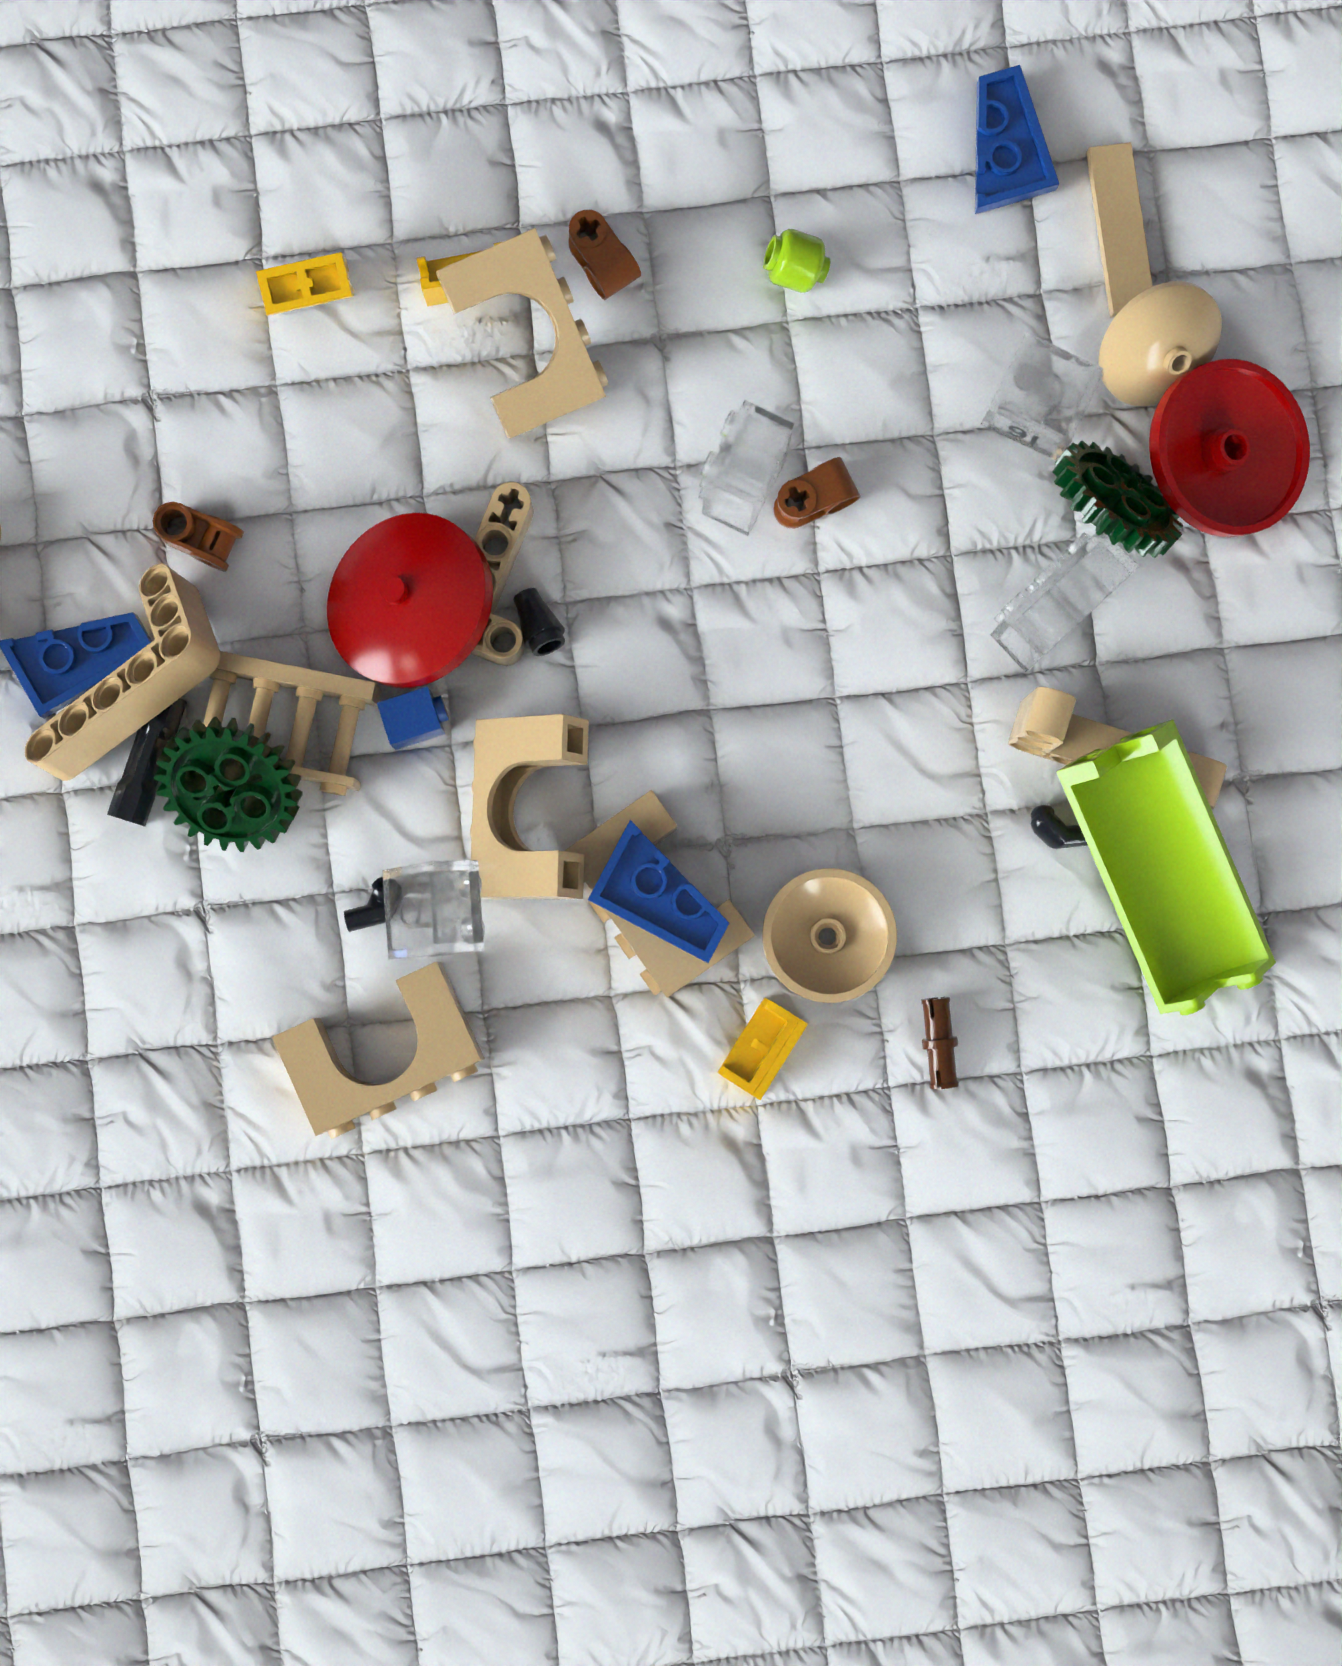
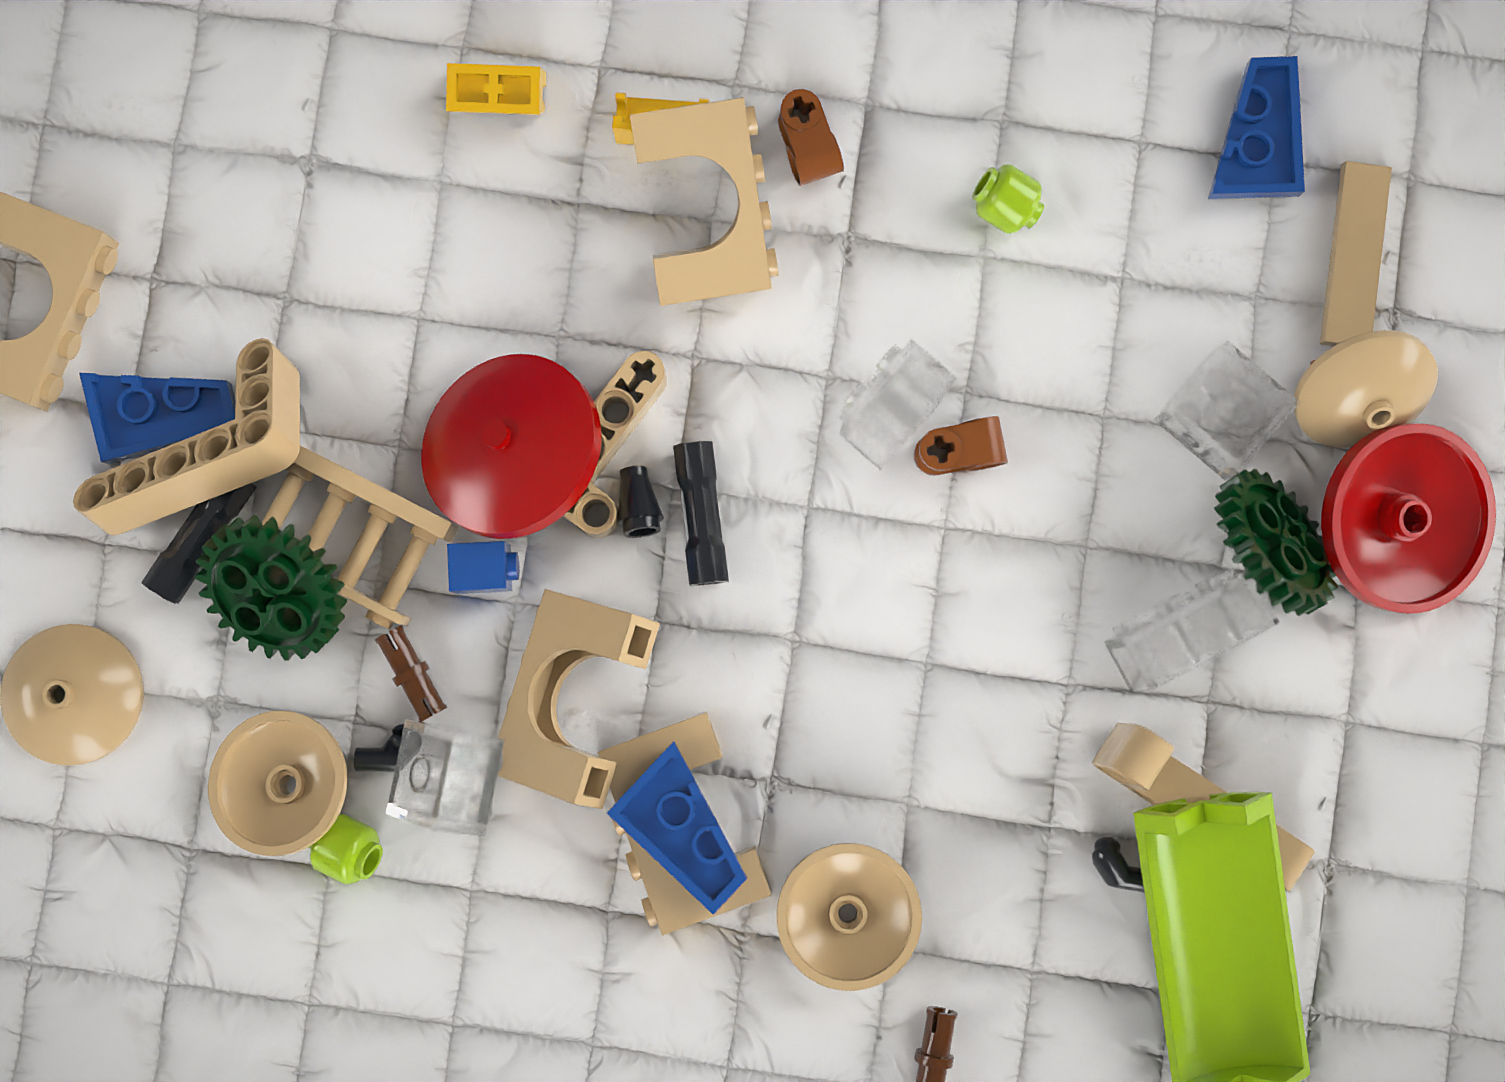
camera: 20 degrees right, 0 degrees up
(98, 940) = (100, 694): none -> tan dish
(204, 537) = (319, 321): dark orange piece -> none
(258, 952) = (252, 777): none -> tan dish
(336, 1097) = (295, 941): tan arch -> none
(359, 1002) = (347, 851): none -> lime head
(374, 830) = (410, 673): none -> reddish brown pin
(597, 616) = (700, 510): none -> black axle
(762, 1048) = (747, 1013): yellow hinge -> none

